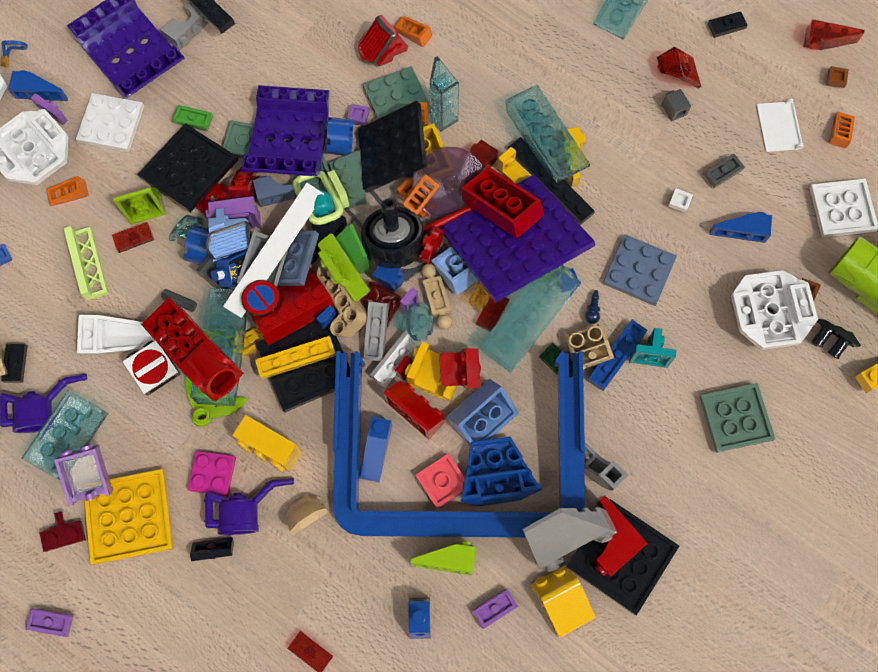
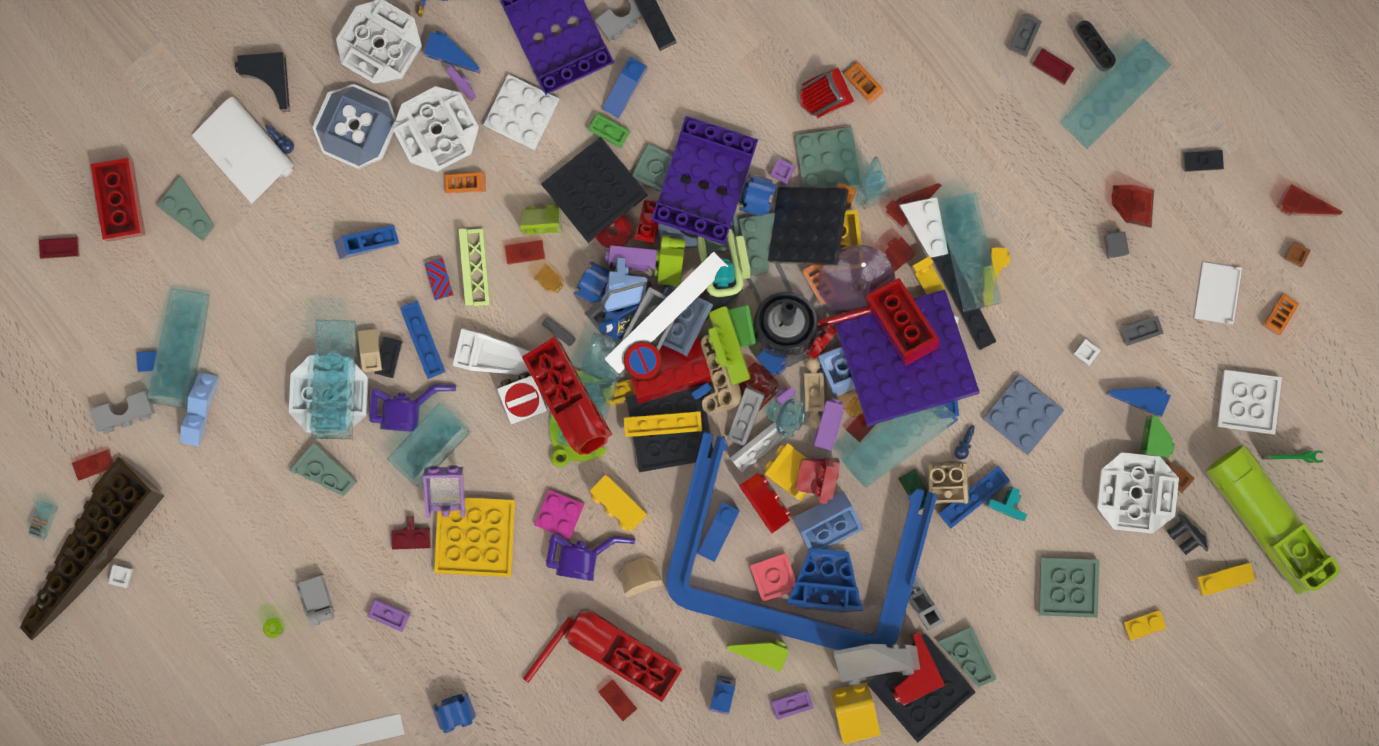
camera: 15 degrees right, 15 degrees up
(46, 339) = (422, 339): none -> blue plate
(54, 281) = (439, 279): none -> tile
(159, 254) = (549, 280): none -> clear yellow window
(183, 226) = (576, 257): clear light blue slope -> none
(200, 78) = (625, 87): none -> blue slope
(212, 549) = (547, 586): black plate -> none
(226, 617) = (548, 649): none -> red bar
(270, 206) = (670, 261): none -> lime hinge
(303, 599) = (622, 654): none -> red brick
(401, 368) = (765, 458): red tile -> none
(406, 203) = (816, 302): orange slope -> none
(458, 319) = (829, 425): none -> medium lavender window
(479, 115) = (894, 211): none -> clear red slope
(501, 122) = (927, 224): none -> white wing
(661, 510) = (969, 655): none -> sand green wing
(772, 253) = (1156, 439): none -> bright green slope
(822, 436) = (1144, 625): none -> yellow plate

